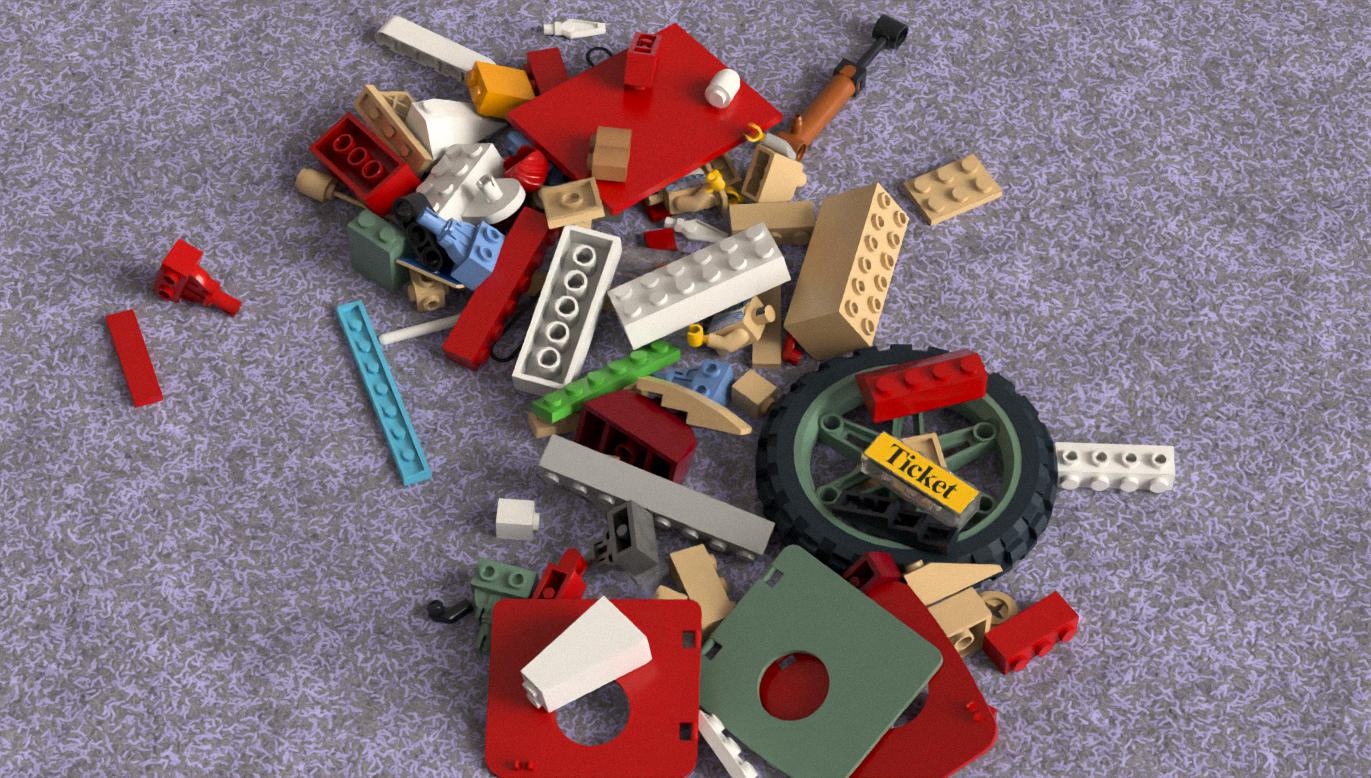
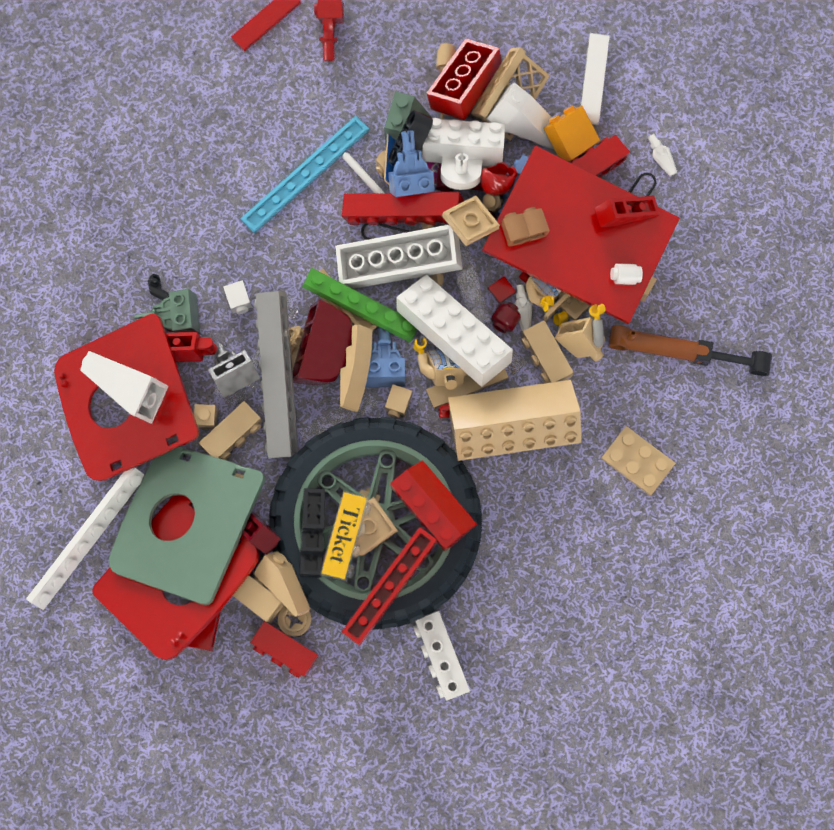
camera: 70 degrees right, 25 degrees up
(699, 238) = (505, 317): none -> dark red head
(1009, 456) = (389, 586): none -> red brick

